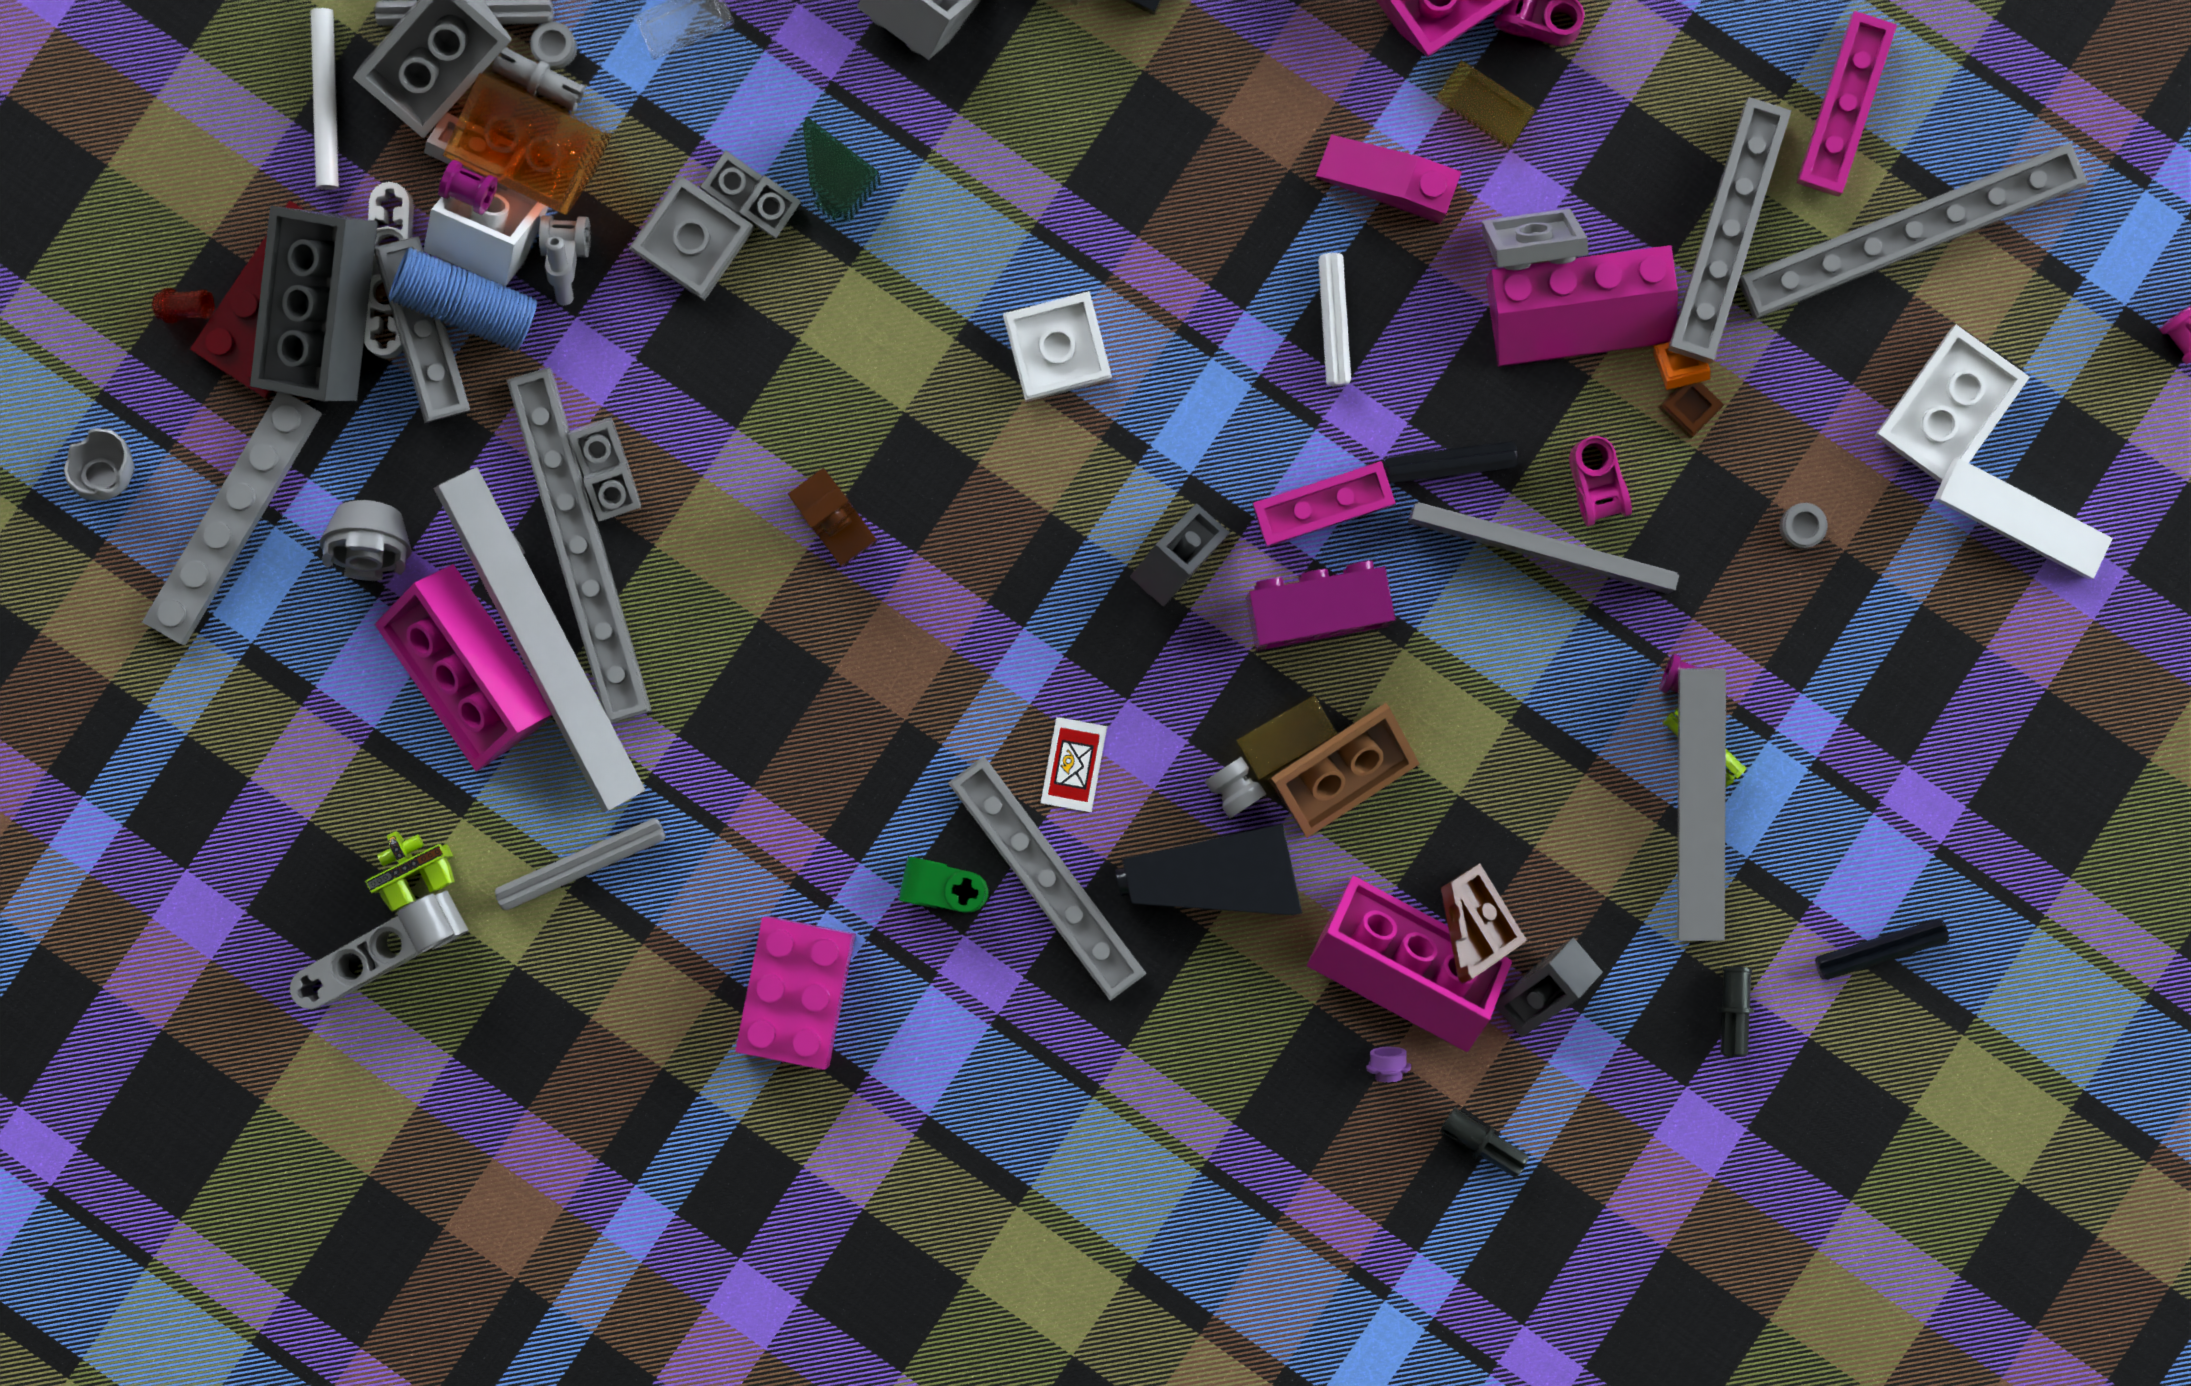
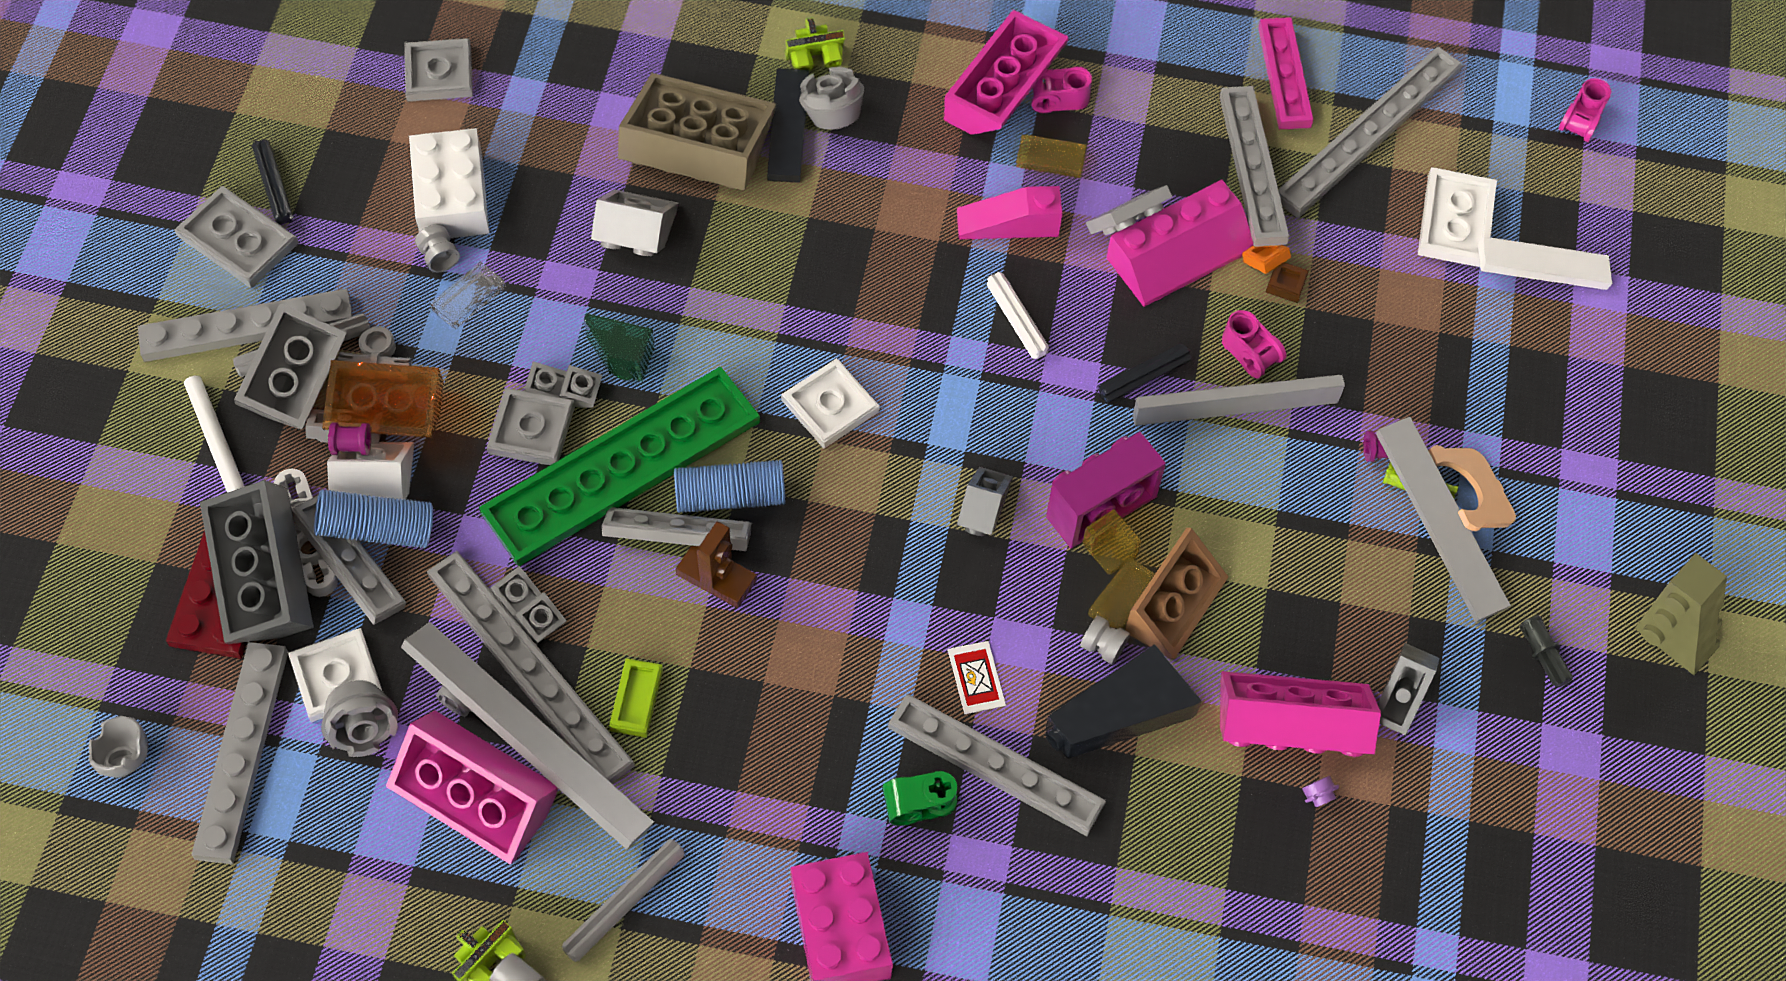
camera: 30 degrees left, 25 degrees down
(175, 305) = (141, 615): clear red pin -> none
(364, 463) = (330, 664): none -> white tile
(562, 244) = (437, 462): light grey piece -> none
(683, 632) = (636, 698): none -> lime tile
(777, 332) = (618, 465): none -> green plate
(808, 444) = (670, 527): none -> light grey tile
(881, 413) = (729, 486): none -> medium blue piece
(1301, 670) = (1111, 541): none -> clear yellow panel
(1323, 504) = (1070, 430): dark pink plate -> none
(1478, 923) = (1331, 660): wing -> none
(1484, 1143) = (1421, 819): pearl dark grey axle -> none
(1778, 807) = (1493, 506): none -> light nougat piece
(1803, 525) = (1404, 325): light grey tile -> none
(1882, 949) = (1620, 570): black axle -> none
(1910, 1048) = (1687, 614): none -> olive wedge

